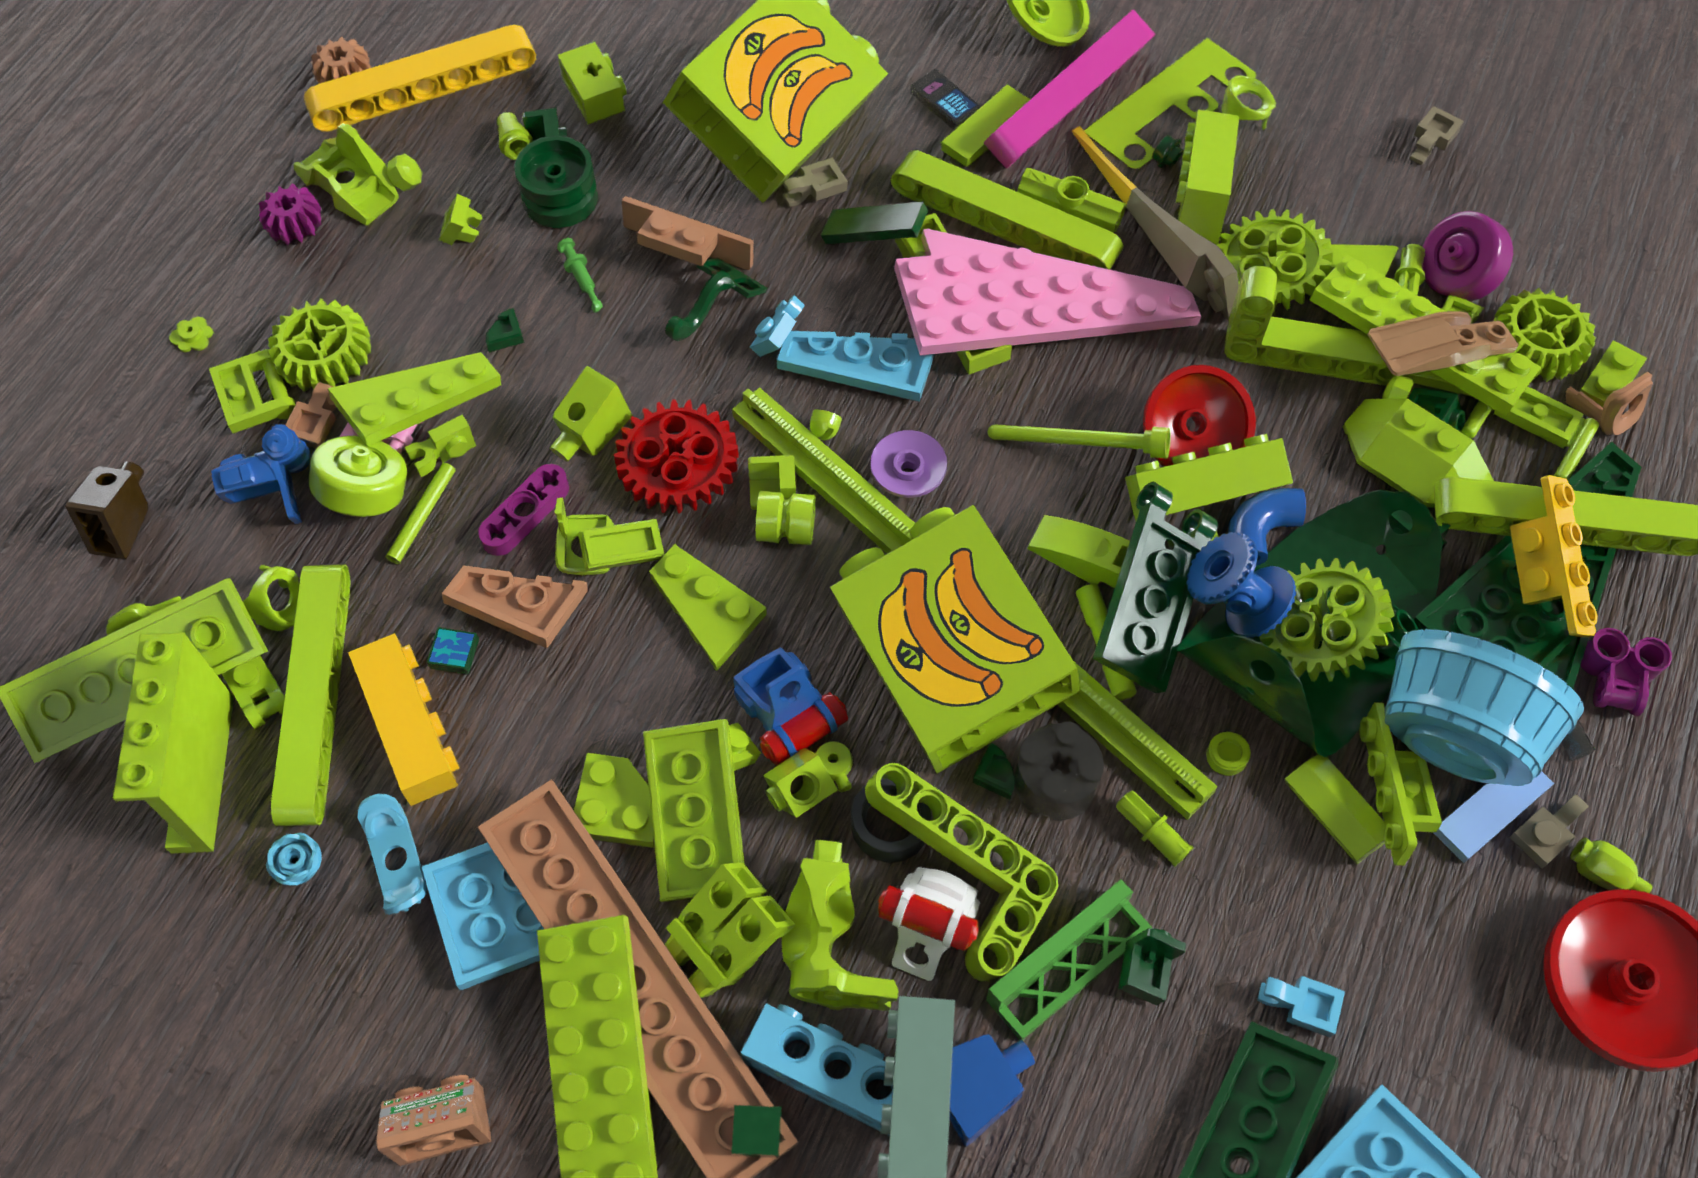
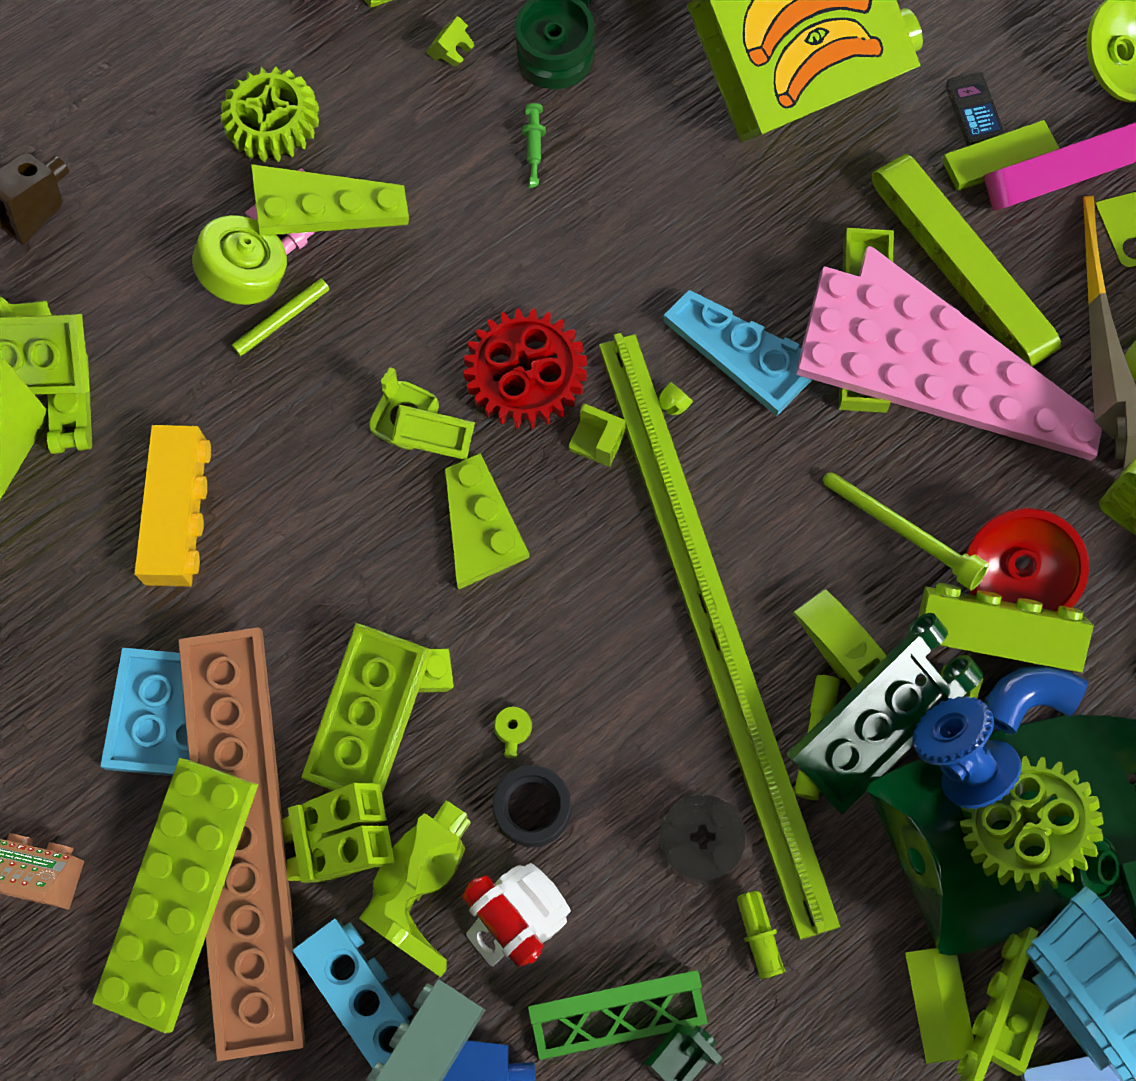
camera: 30 degrees right, 10 degrees up
(191, 334) = (171, 51): lime plant -> none
(241, 396) = (182, 133): lime plate -> none
(258, 602) = (125, 363): lime piece -> none
(265, 472) = (167, 219): blue piece -> none
(285, 850) = (19, 579): medium azure plate -> none
(311, 697) = (109, 446): lime beam -> none
(315, 419) = (229, 185): nougat plate -> none
(385, 830) = (112, 599): medium azure piece -> none
(445, 442) = (331, 259): lime plate -> none
(453, 650) = (244, 461): tile -> none
(504, 332) = (438, 171): dark green tile -> none
(519, 605) = (317, 444): nougat wing -> none
(523, 525) = (339, 356): magenta beam -> none
(589, 415) = (464, 295): lime torso -> none
(614, 801) = (307, 666): lime plate -> none
(681, 328) = (593, 241): dark green piece -> none
(684, 236) = (642, 151): nougat bracket -> none
(756, 1131) = (272, 1022): dark green tile -> none
(773, 331) = (679, 282): medium azure plate -> none
(785, 518) = (584, 474): lime wheel -> none
(786, 704) = (496, 655): blue piece -> none
(815, 788) = (473, 719): lime brick -> none
(818, 179) = (803, 144): dark tan plate -> none
(874, 223) = (828, 216): dark green tile -> none
(912, 451) = (731, 459): medium lavender dish -> none
(954, 635) = (668, 669): lime brick -> none
(974, 859) = (581, 880): lime beam -> none
(995, 772) = (649, 808): dark green tile -> none
(1073, 197) = (1053, 290): lime piece -> none
(1228, 753) = (870, 899): lime tile -> none

